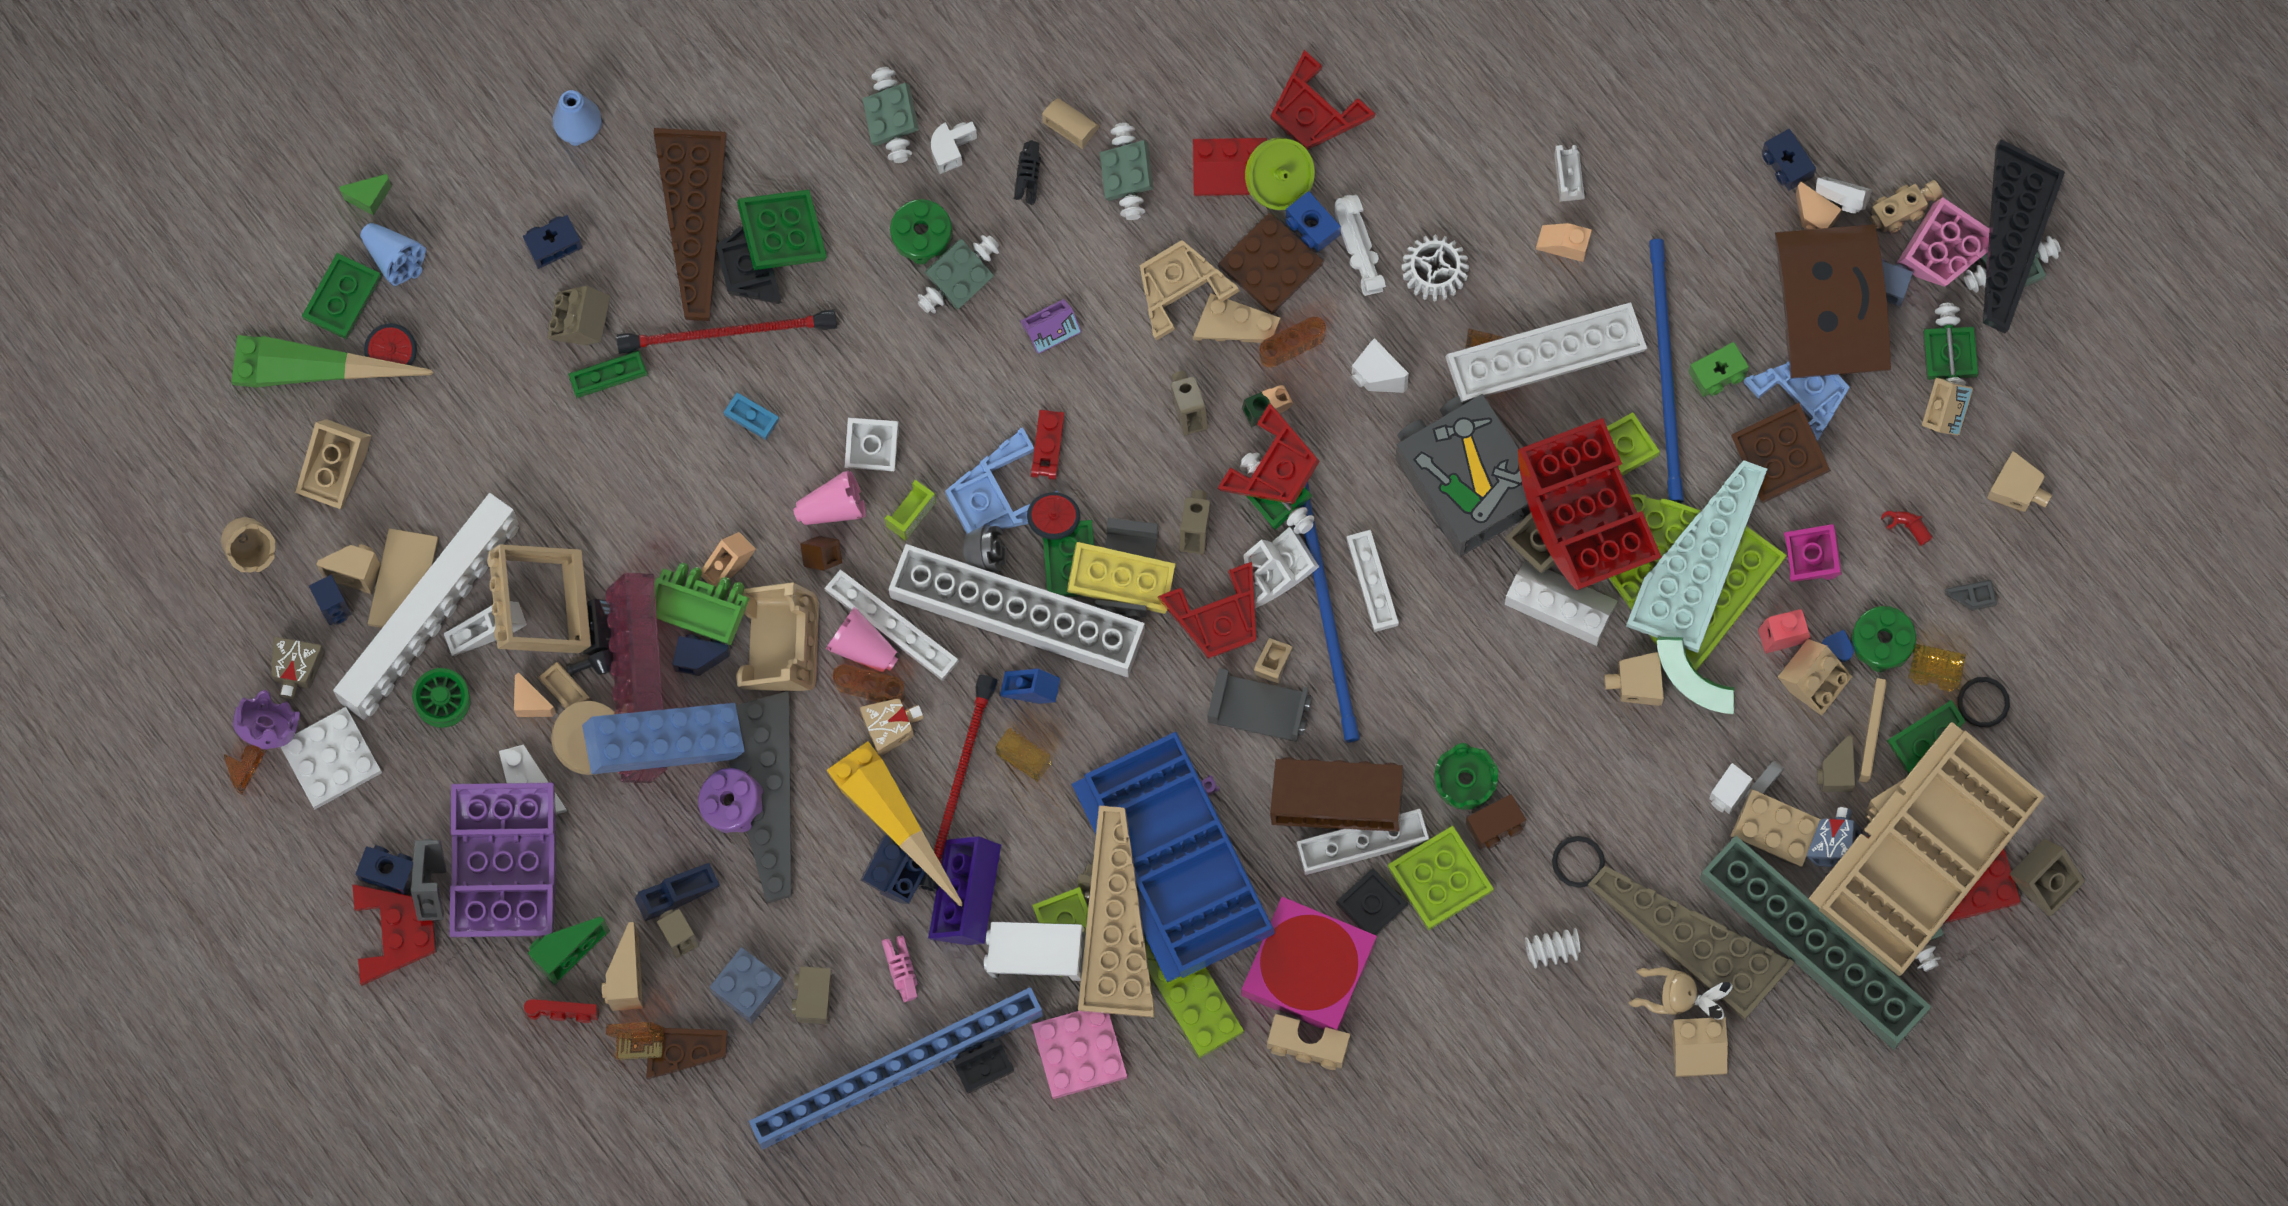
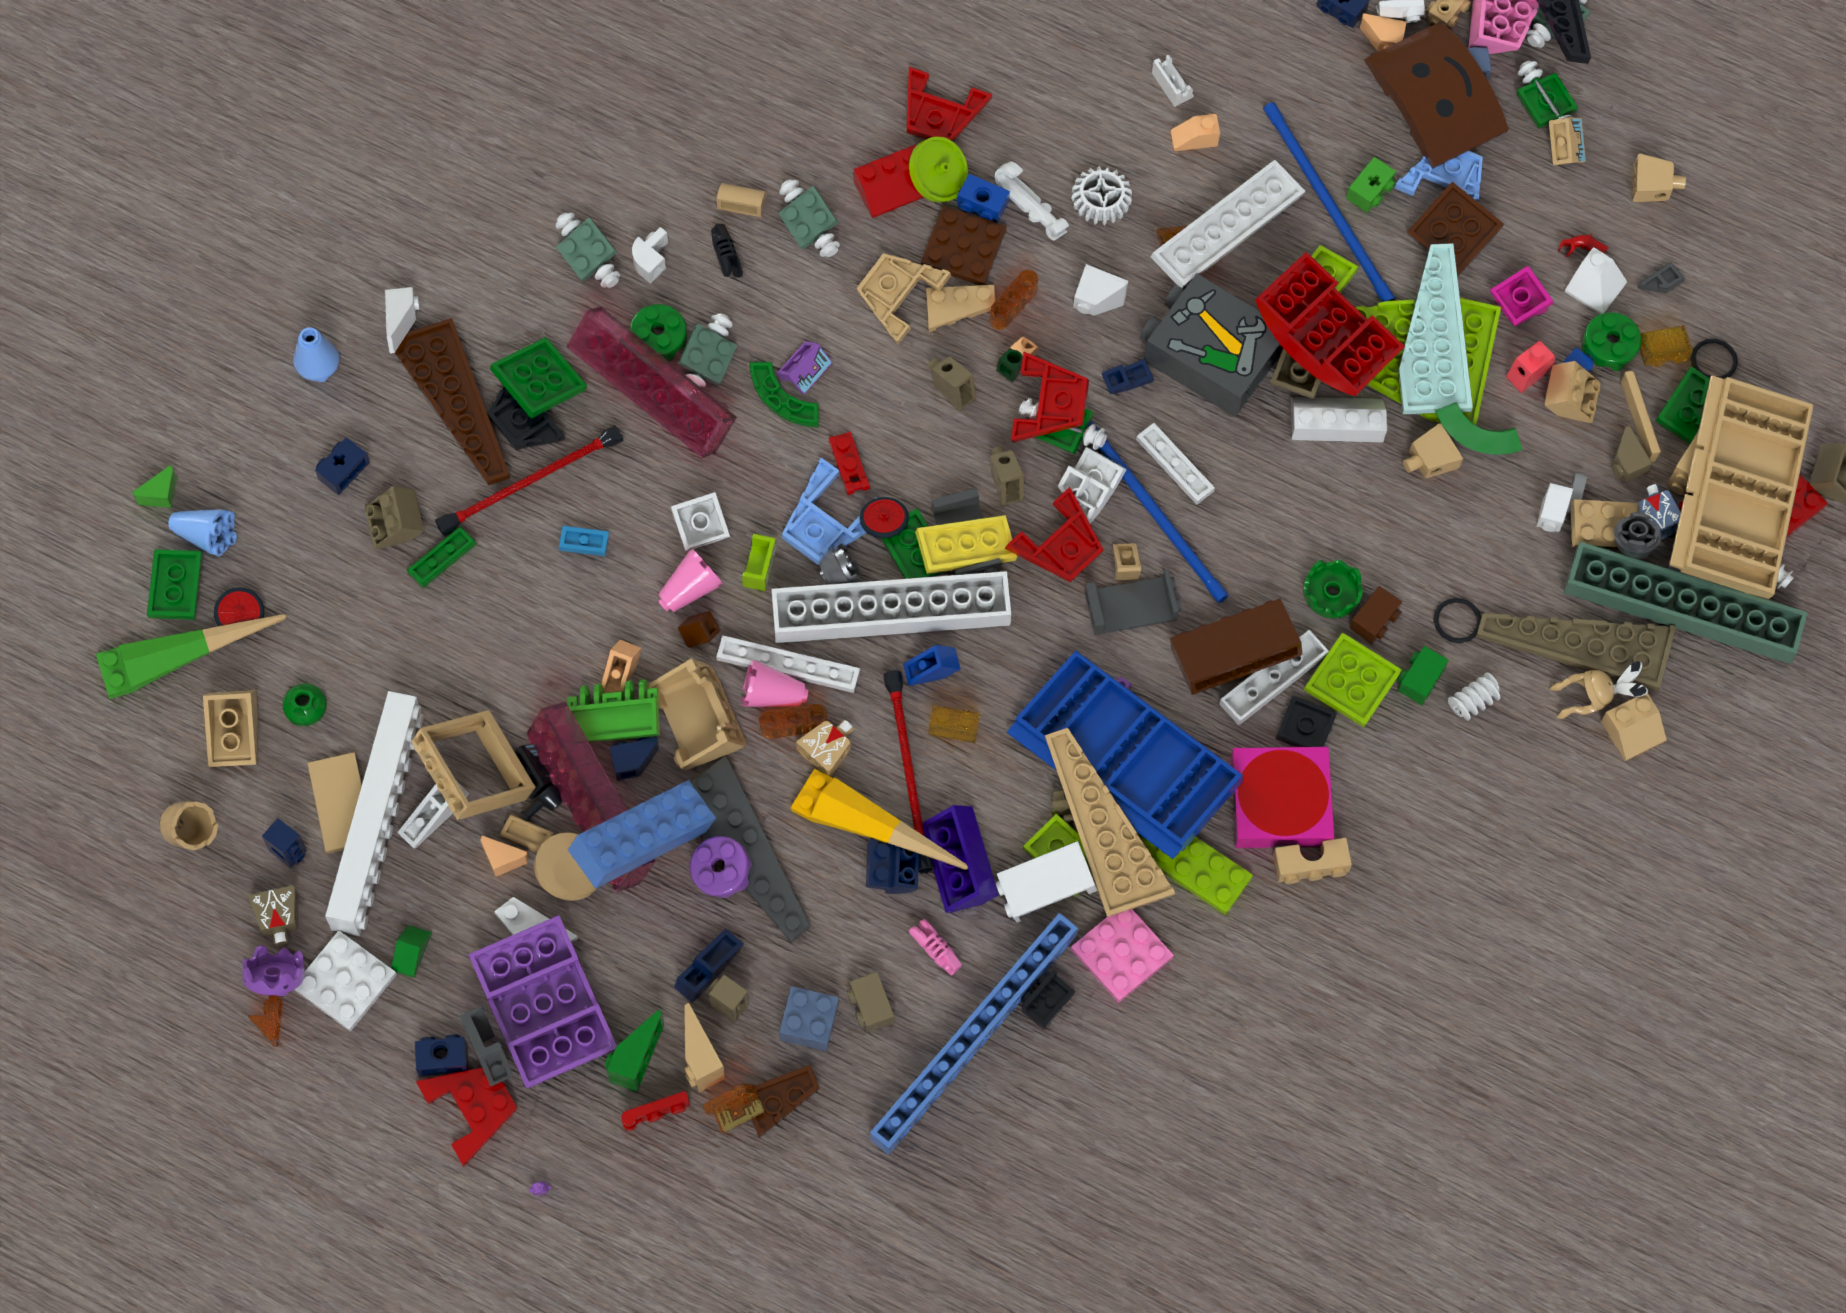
camera: 30 degrees left, 5 degrees down
(352, 567) = (292, 805): tan slope -> none
(404, 754) = (410, 950): none -> green slope
(415, 479) = (307, 714): none -> green piece
(421, 1037) = (539, 1188): none -> medium lavender piece
(441, 697) = (422, 886): green wheel -> none
(674, 110) = (400, 314): none -> white slope
(888, 281) = (651, 382): none -> clear pink brick
(1009, 349) = (778, 400): none -> green tile
(1369, 470) = (1127, 378): none -> dark blue slope
(1512, 902) = (1422, 675): none -> green brick
(1795, 854) = (1637, 535): none -> flat silver cone
(1901, 570) = (1596, 282): none -> white slope

